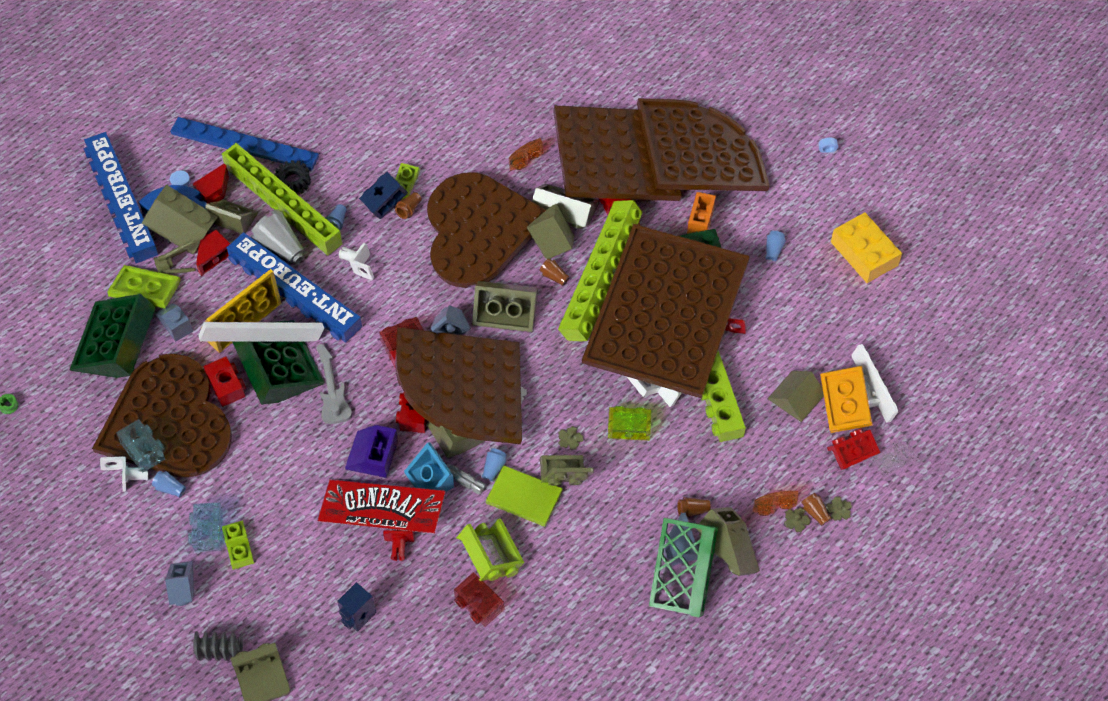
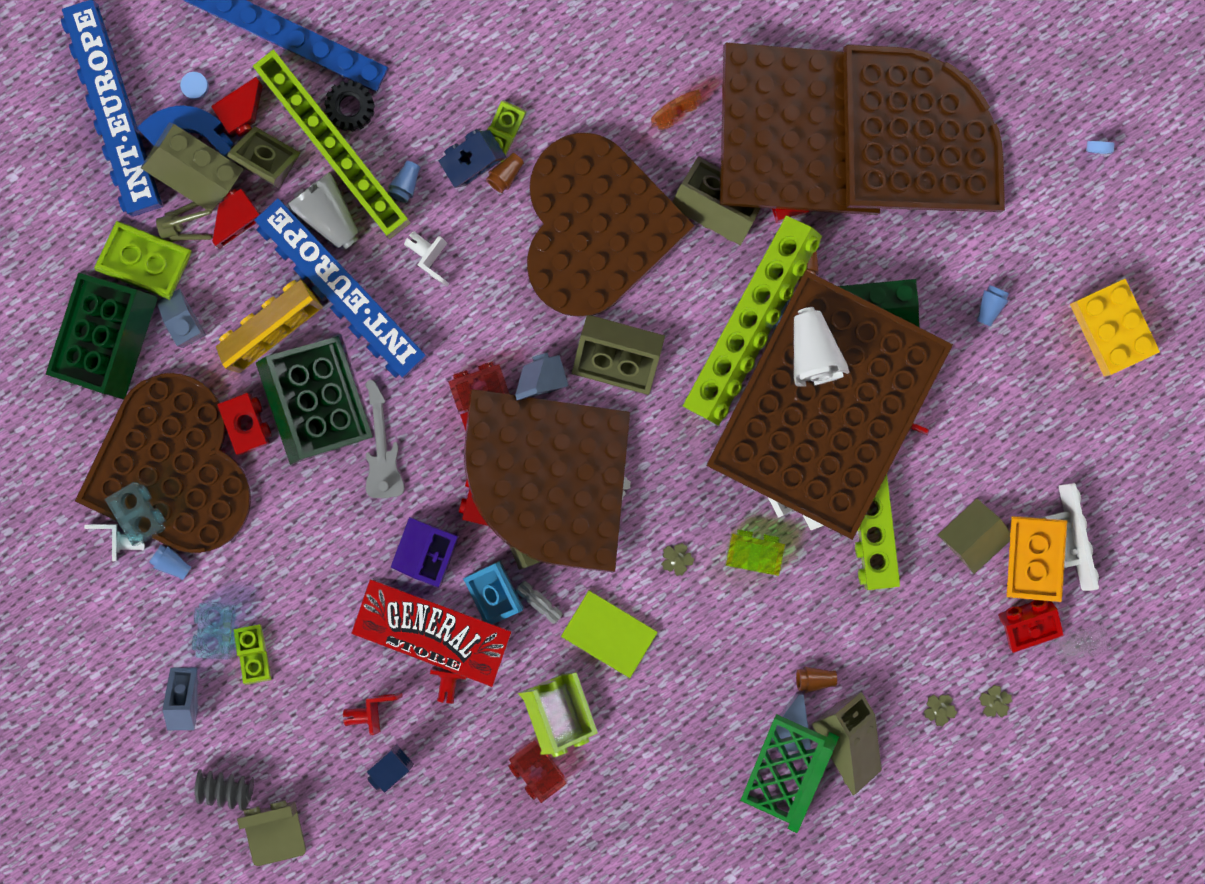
camera: 10 degrees right, 30 degrees up
(260, 331) = (293, 373): white tile -> none
(336, 574) = (369, 714): none -> red bracket
(494, 462) = (576, 587): medium blue cone -> none
(552, 232) = (696, 252): olive slope -> none
(552, 271) = (689, 308): dark orange cone -> none
(563, 469) = (663, 615): olive bracket -> none
(651, 268) = (815, 350): none -> white cone
(701, 212) = (901, 249): orange brick -> none
(766, 504) = (910, 689): clear orange slope -> none
(815, 507) = (966, 700): dark orange cone -> none

